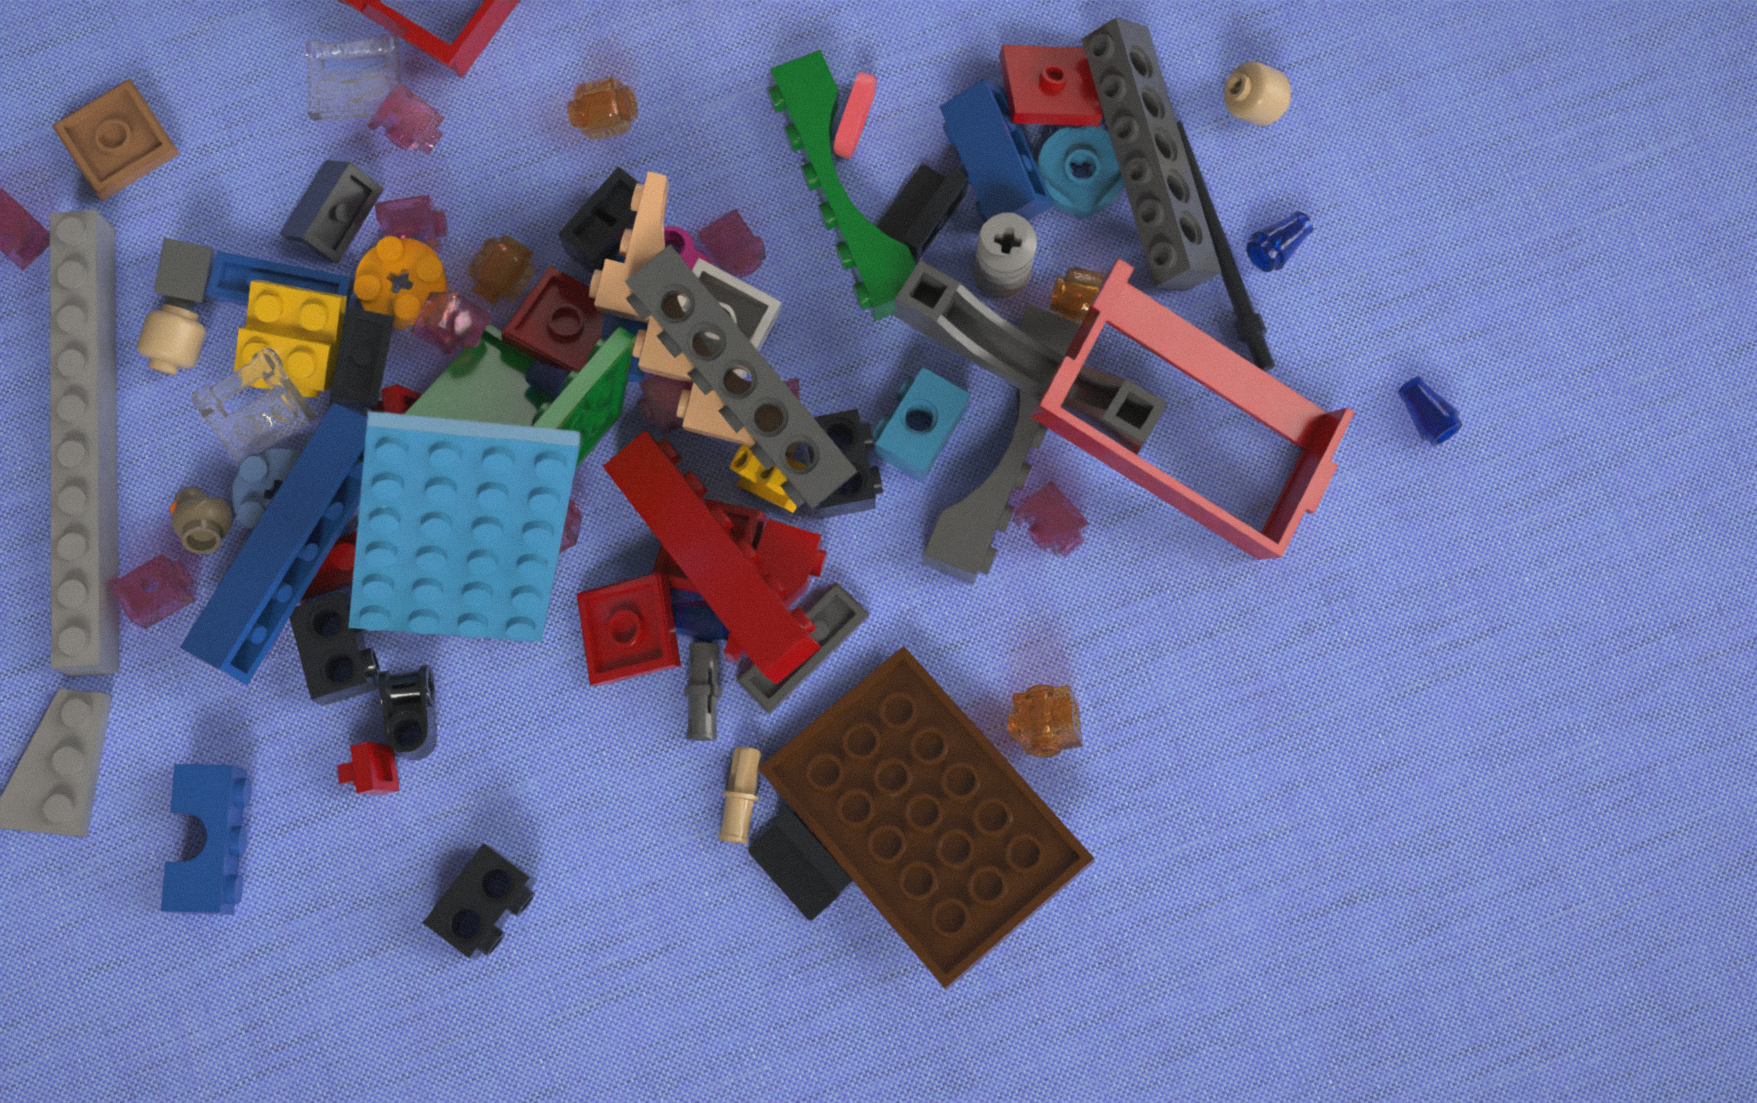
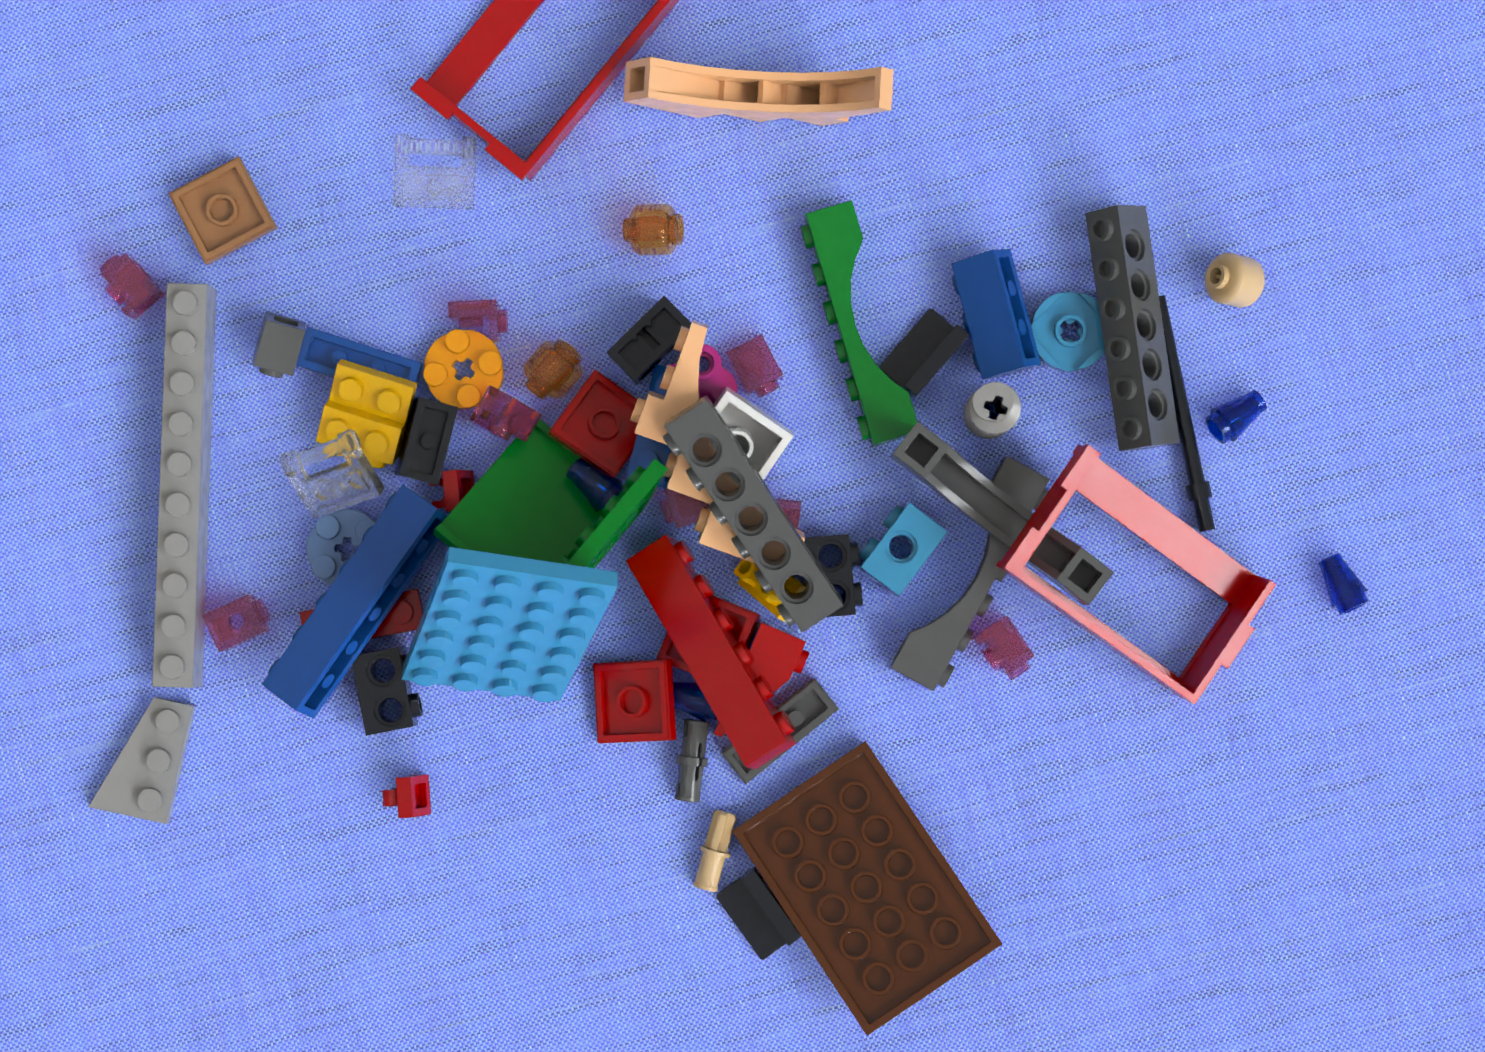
camera: 10 degrees right, 10 degrees up
(171, 339) = (263, 403): tan head -> none
(200, 520) = (279, 566): dark tan animal -> none
(211, 879) = (279, 805): blue arch -> none
(333, 209) = (407, 296): black panel -> none
(406, 702) = (444, 746): black piece -> none
(408, 121) = (480, 224): clear pink brick -> none
(471, 893) = (486, 910): black brick -> none
(855, 115) = (876, 259): coral tile -> none
(1046, 720) = (977, 819): clear orange brick -> none
(1049, 85) = (1051, 252): red plate -> none
(1075, 292) = (1051, 449): clear orange head -> none

